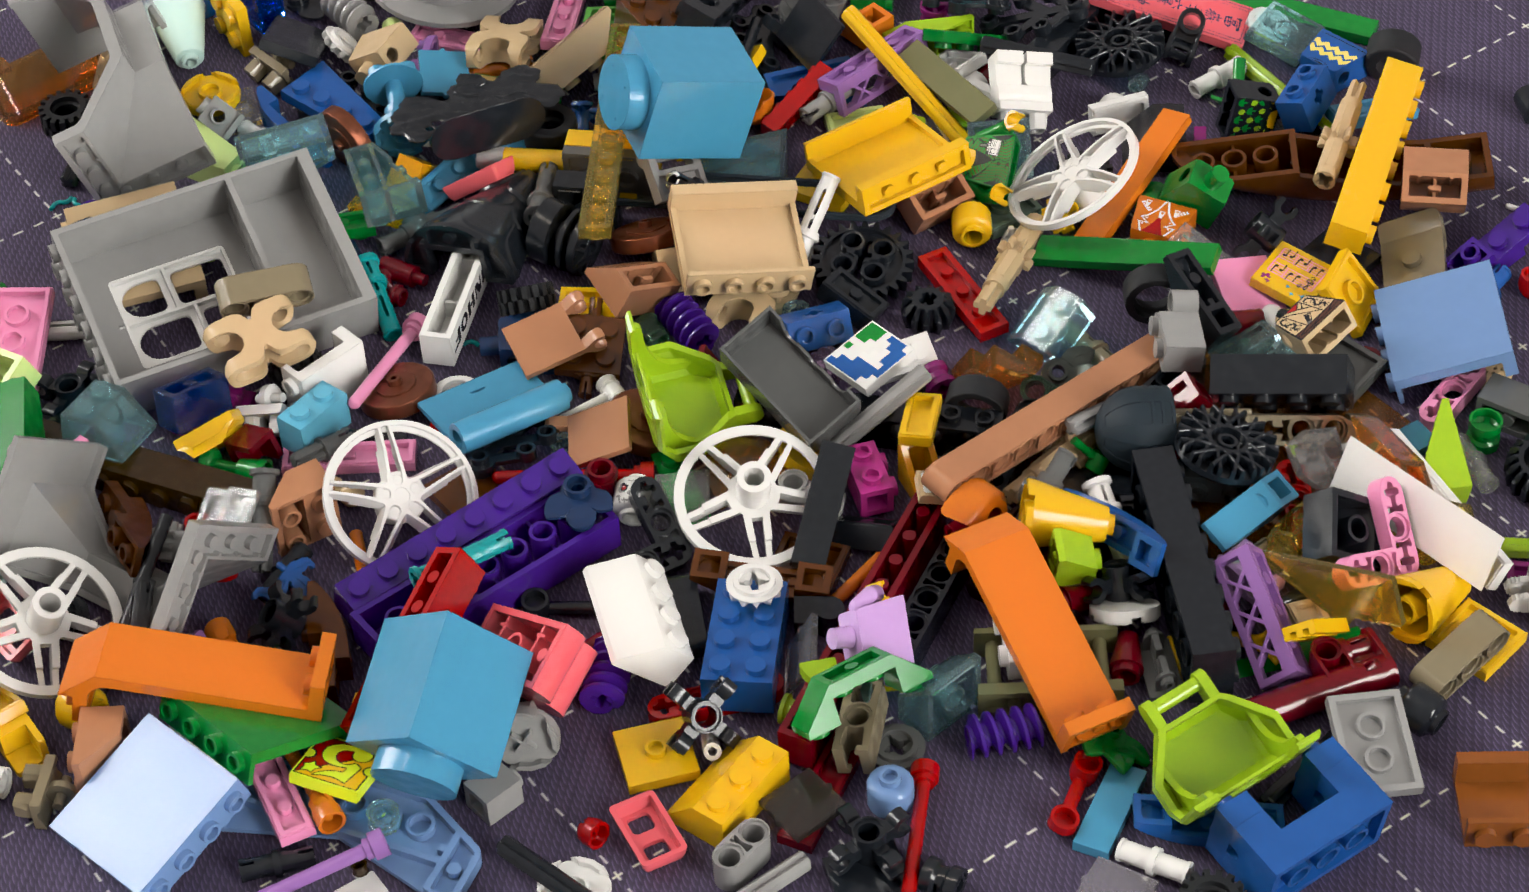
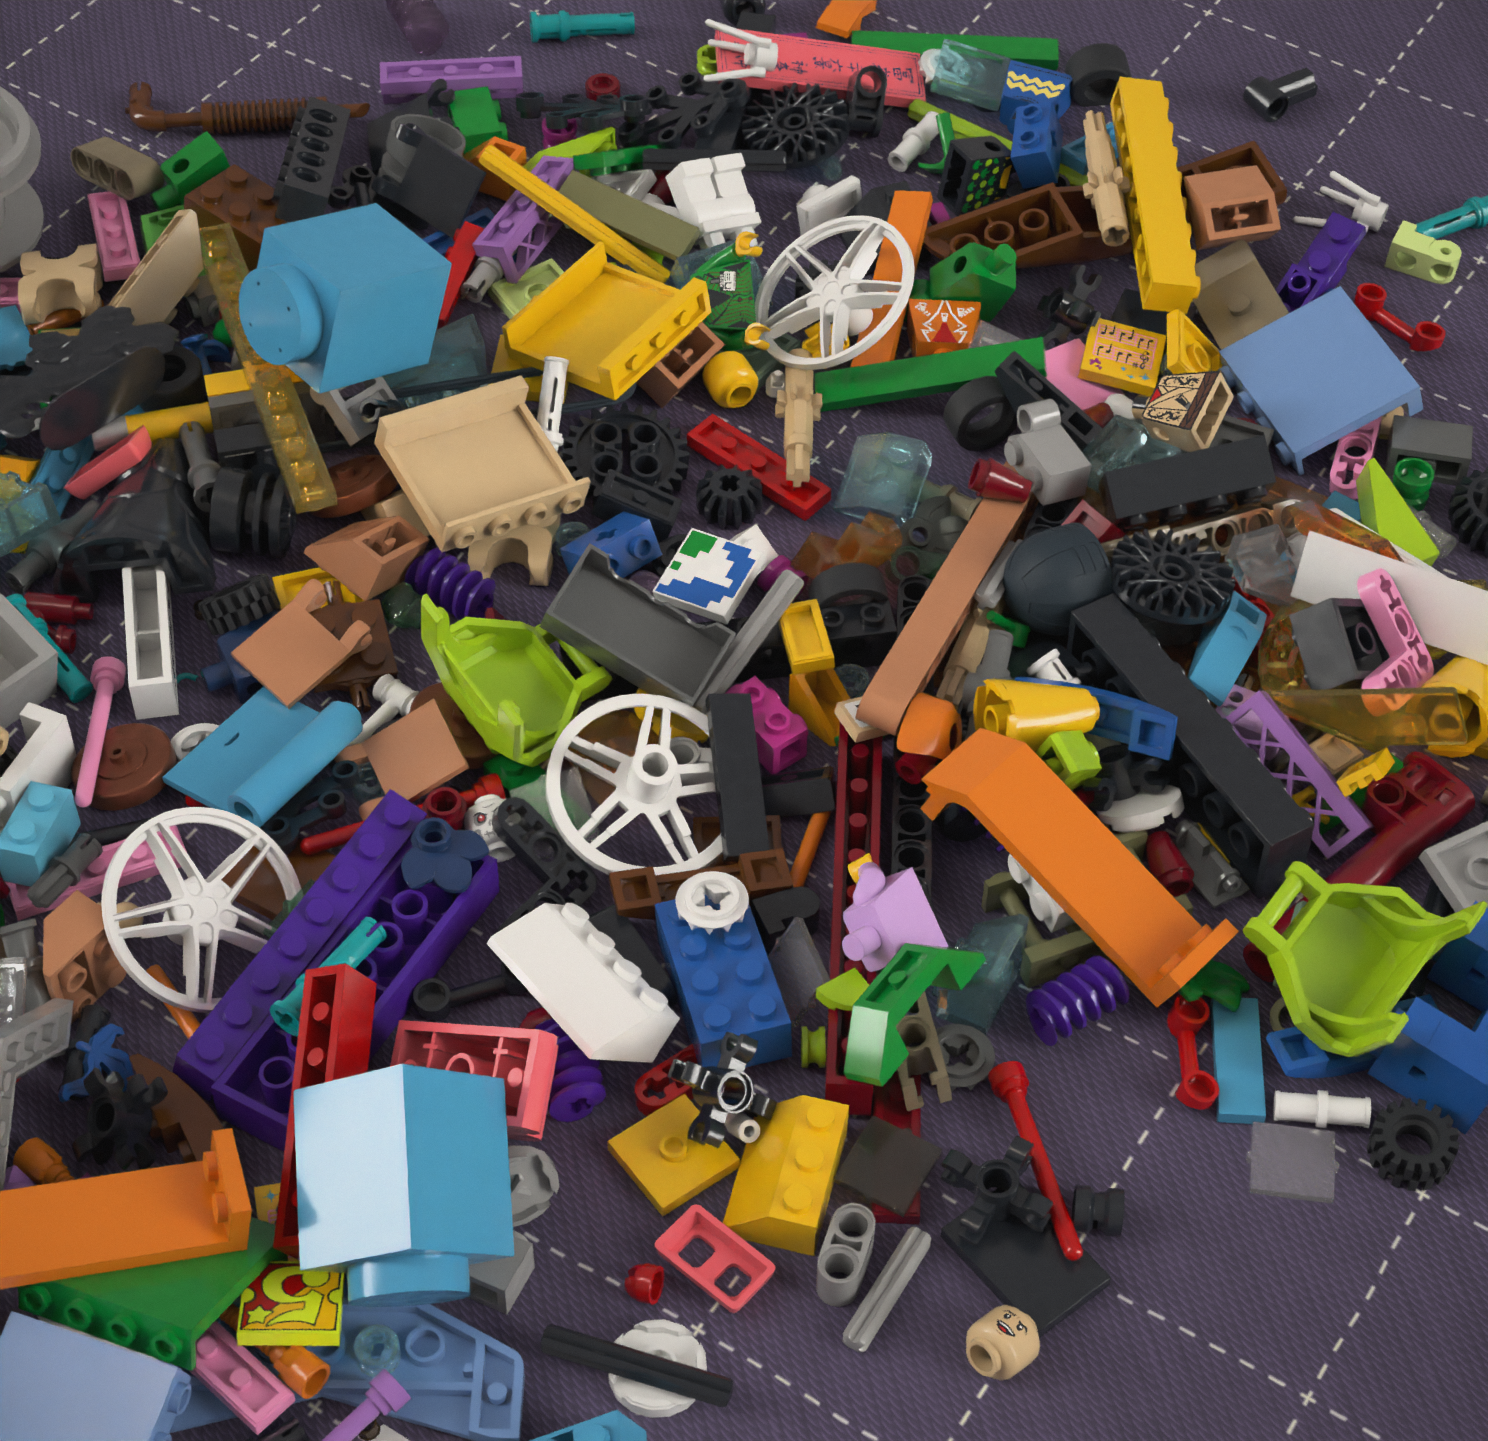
camera: 25 degrees left, 5 degrees up
(888, 789) = (985, 1117): medium blue head -> none
(1128, 343) = (997, 481): none -> dark red cone

